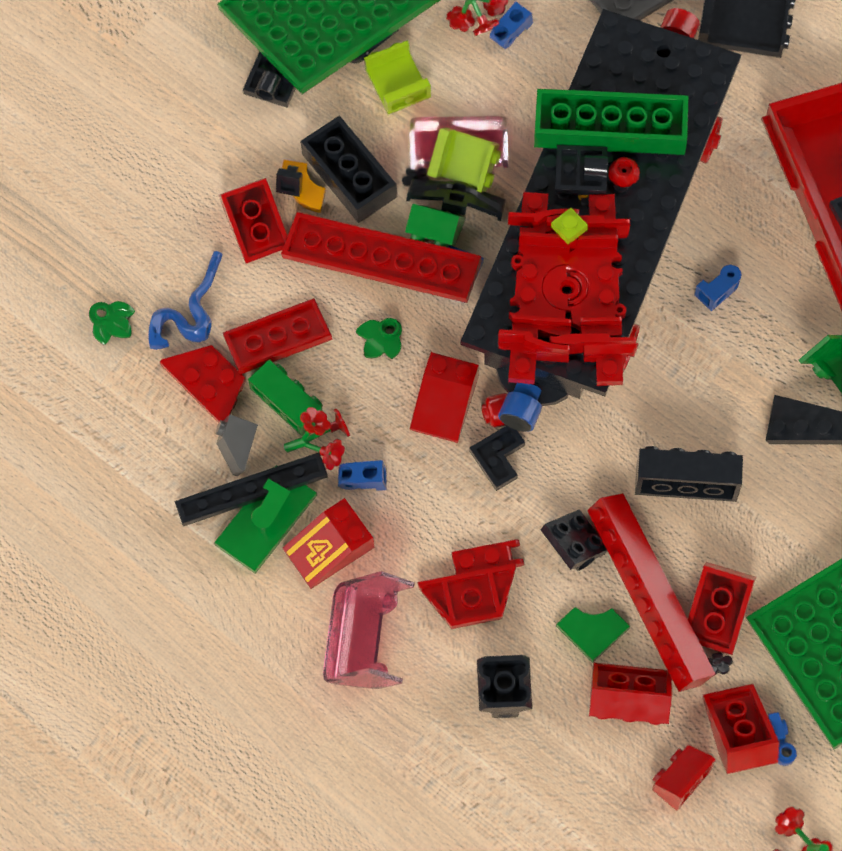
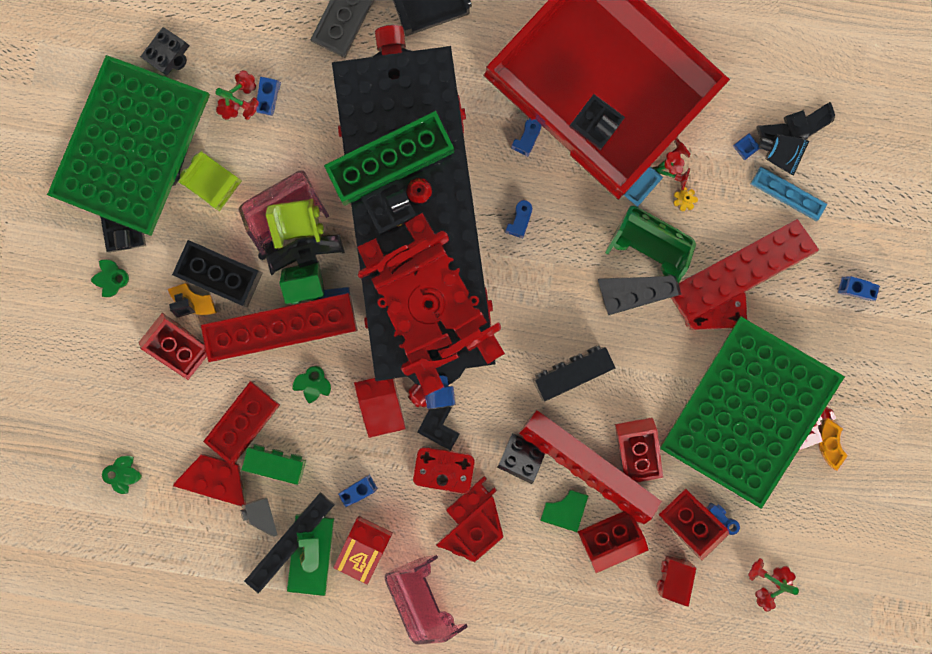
camera: 30 degrees left, 20 degrees up
(196, 333) = (187, 445): blue animal -> none
(226, 118) = (108, 278): none -> green plate
(317, 423) = (307, 482): red plant -> none
(480, 498) = (445, 463): none -> red axle
(504, 685) = (531, 585): black piece -> none
(569, 226) = (407, 263): lime plate -> none
(720, 663) = (658, 488): black plant -> none
(777, 209) = (528, 139): none -> blue leg

